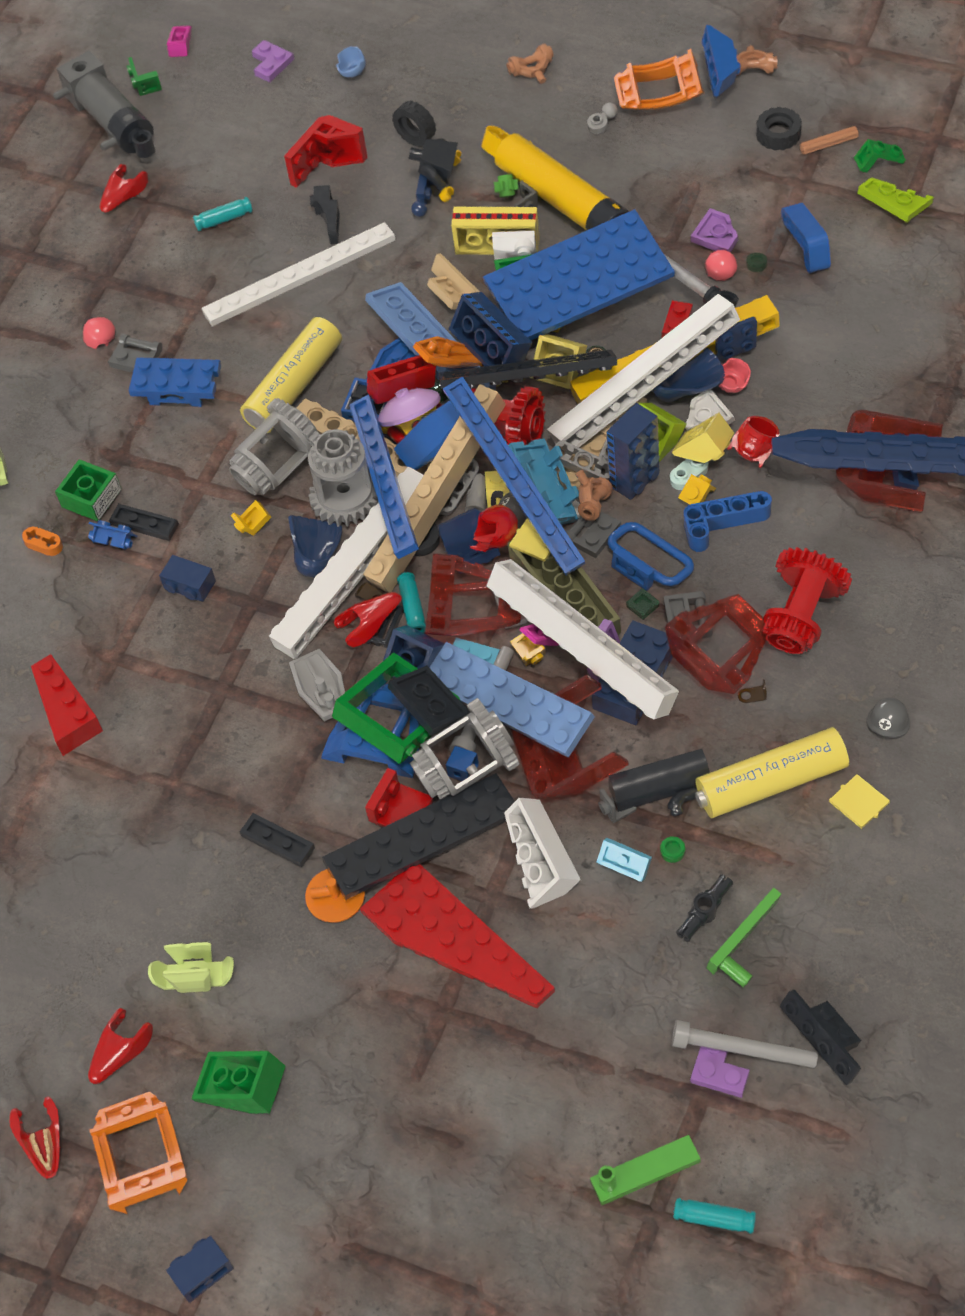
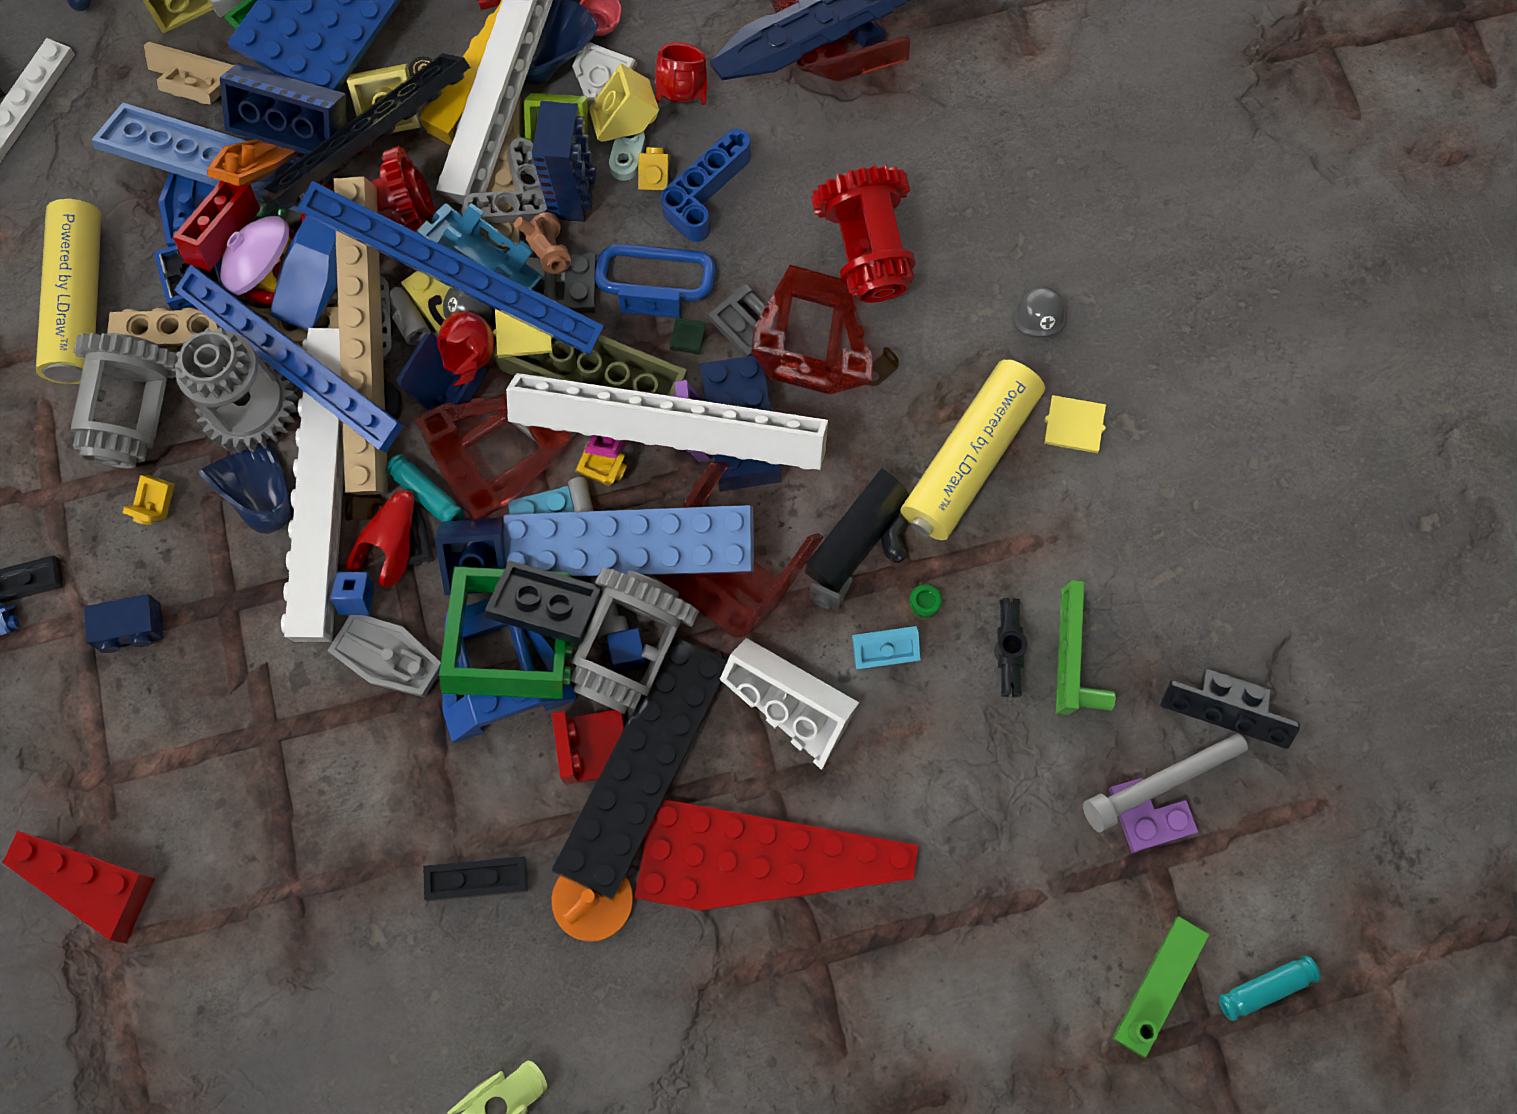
camera: 40 degrees left, 15 degrees up
(325, 633) = (352, 593): none -> blue piece

